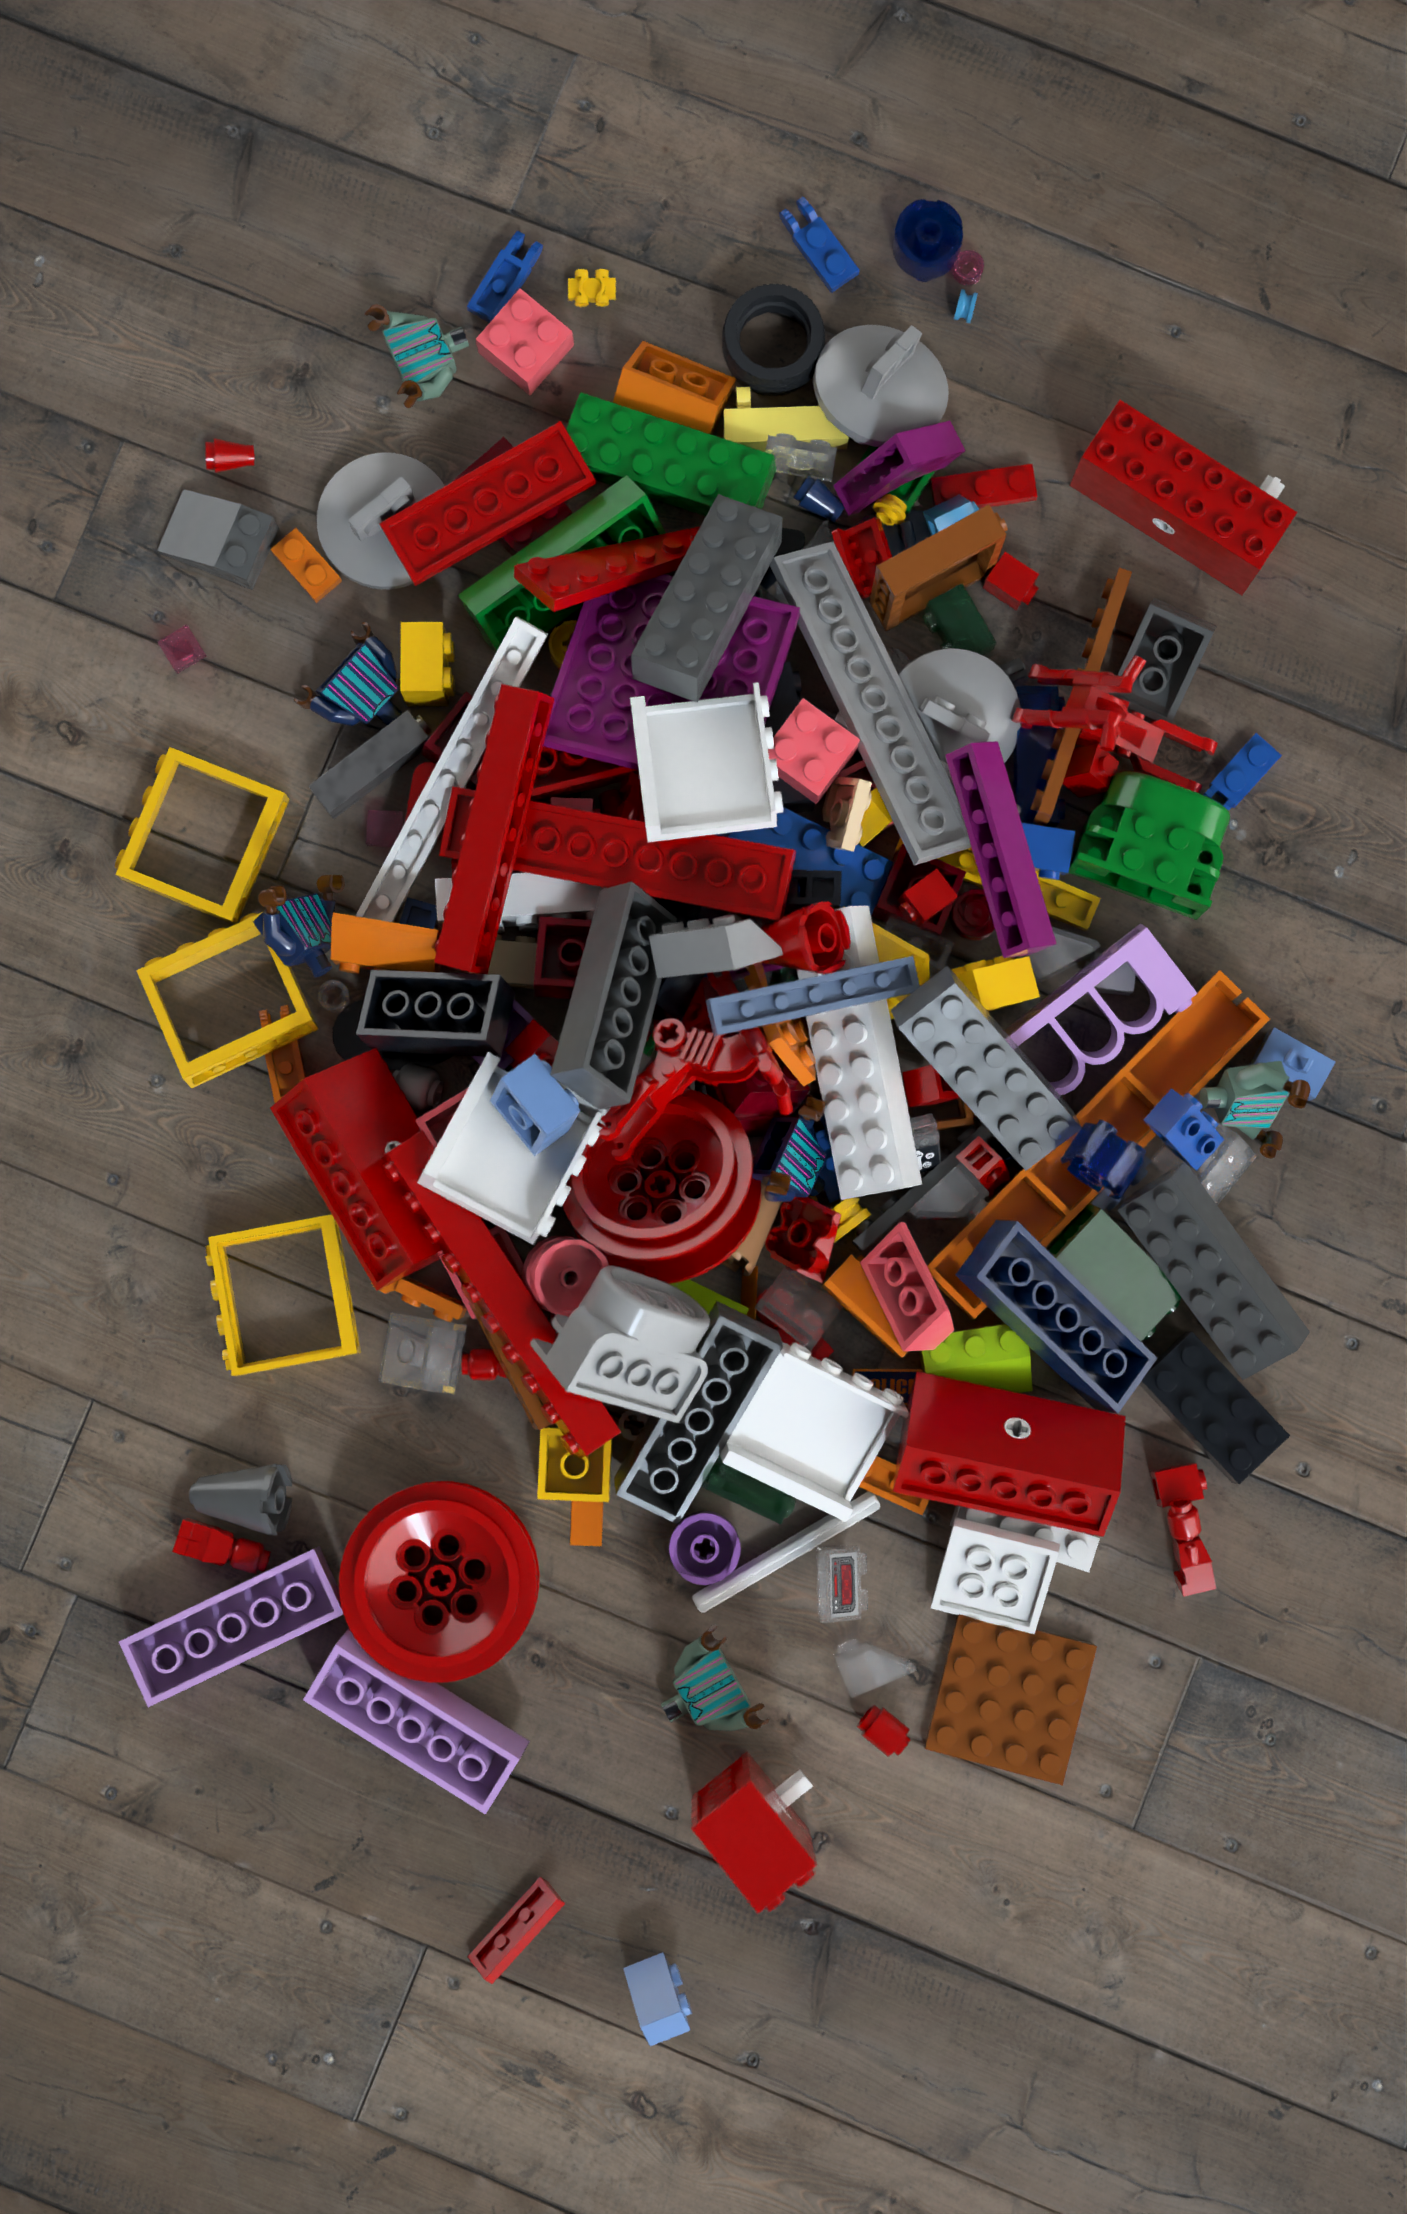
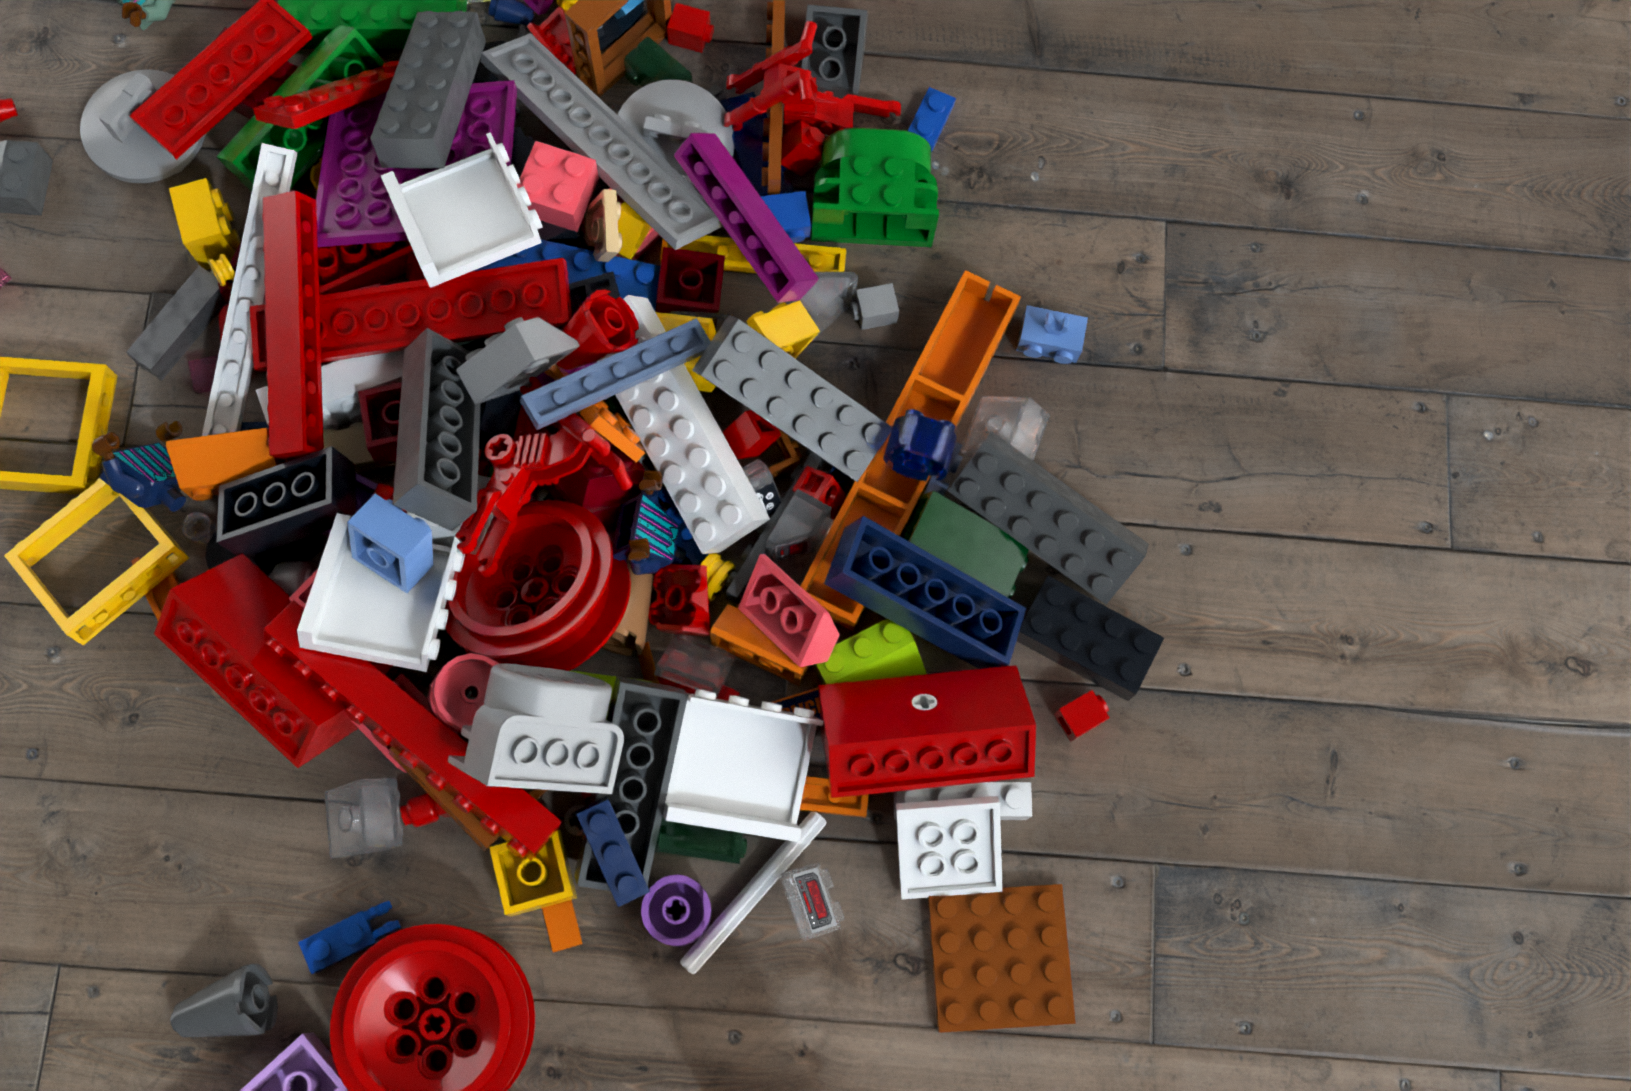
camera: 25 degrees left, 10 degrees down
(219, 1547) = (213, 1064): red piece -> none
(223, 1292) = (160, 822): yellow window -> none
(306, 565) = (83, 181): orange plate -> none
(358, 685) = (149, 261): dark blue torso -> none
(373, 1466) = (345, 938): none -> blue hinge
(417, 1293) = (344, 765): orange hinge -> none
(434, 733) = (222, 269): none -> yellow bush
(660, 1474) = (612, 851): none -> dark blue plate
(710, 1689) = (722, 1043): torso -> none
(869, 1666) = (862, 971): clear slope -> none
(884, 1731) = (896, 1028): red brick -> none
(926, 898) = (697, 280): red brick -> none
(972, 916) = (745, 293): dark red wheel -> none
(1154, 968) = (911, 286): lavender fence -> none
(1184, 1128) = (980, 404): blue brick -> none
(1193, 1560) = (1112, 768): red piece -> none
(1252, 1098) = (1029, 365): sand green torso -> none

